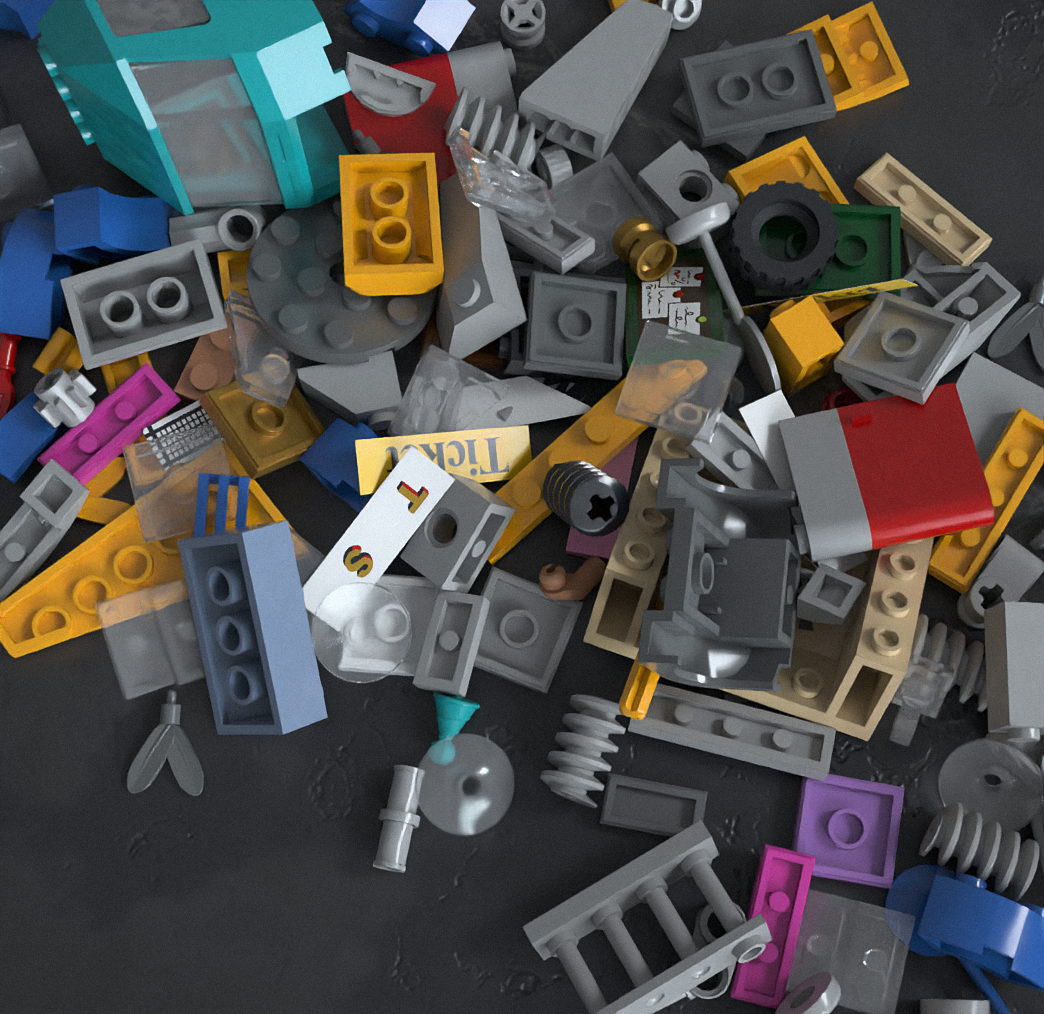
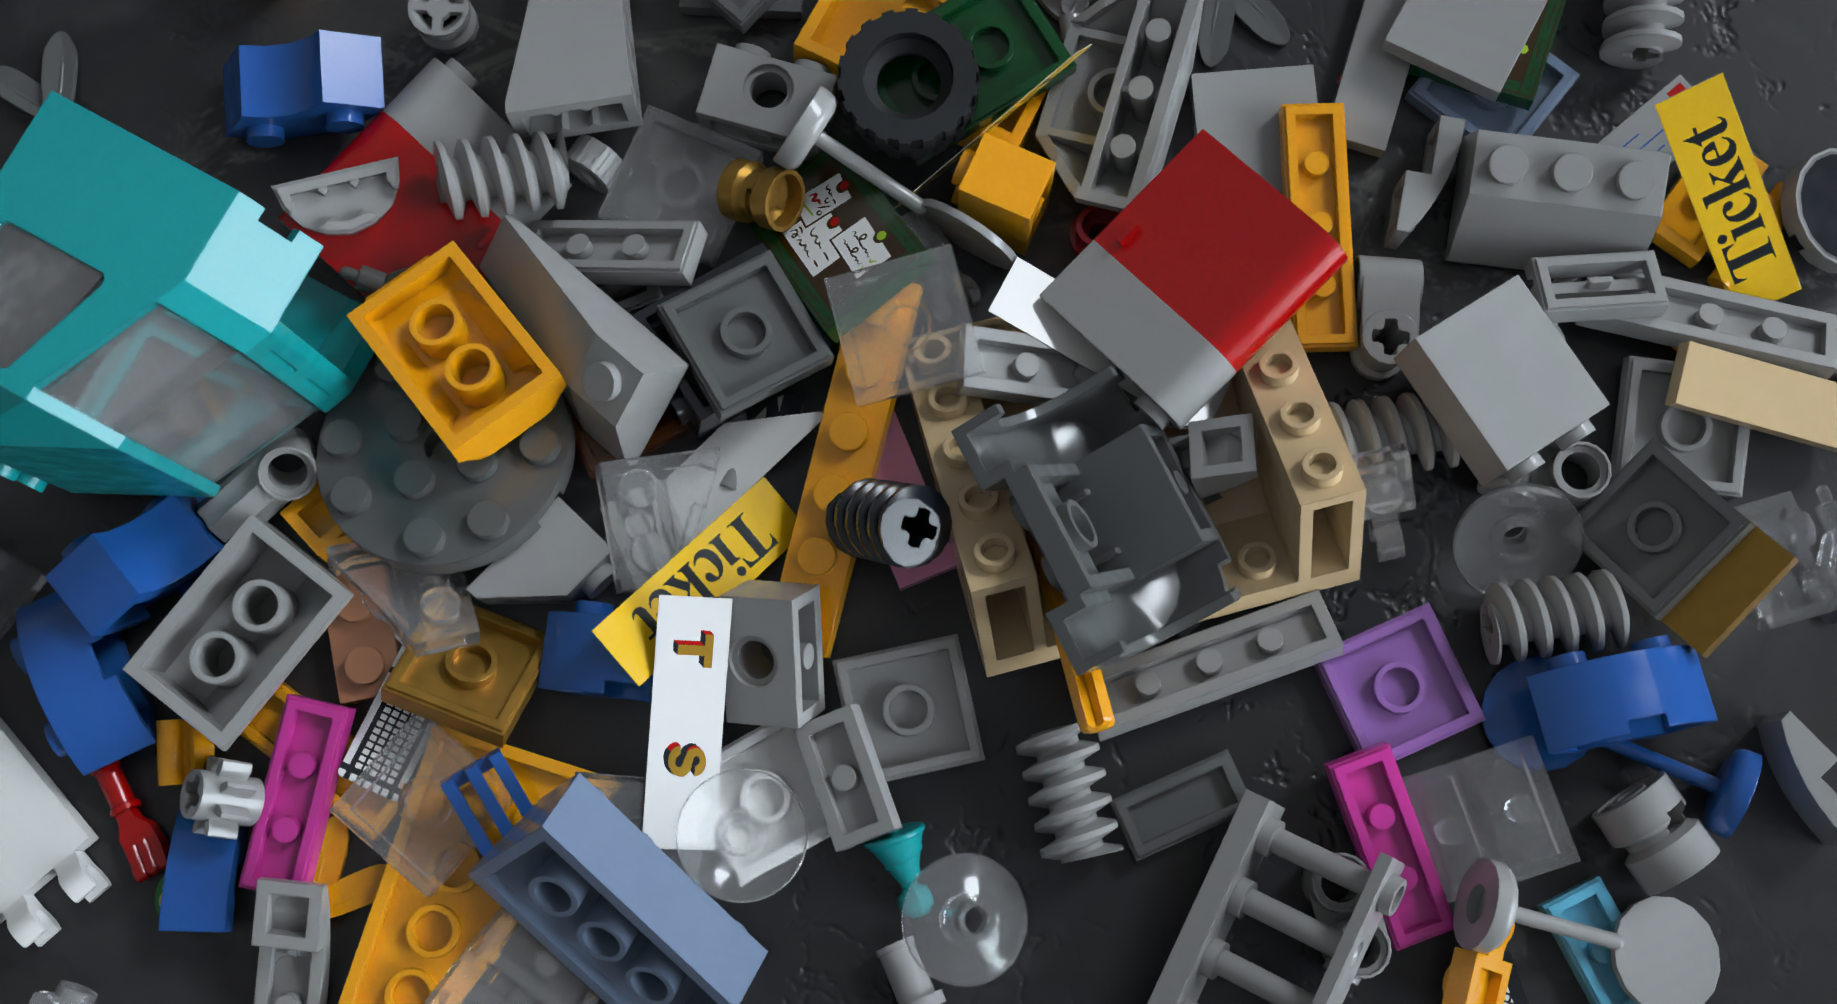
camera: 30 degrees left, 5 degrees up
(500, 182) = (550, 227): clear wing -> none
(571, 586) = (937, 623): nougat arm -> none
(902, 347) = (1119, 124): light grey tile -> none

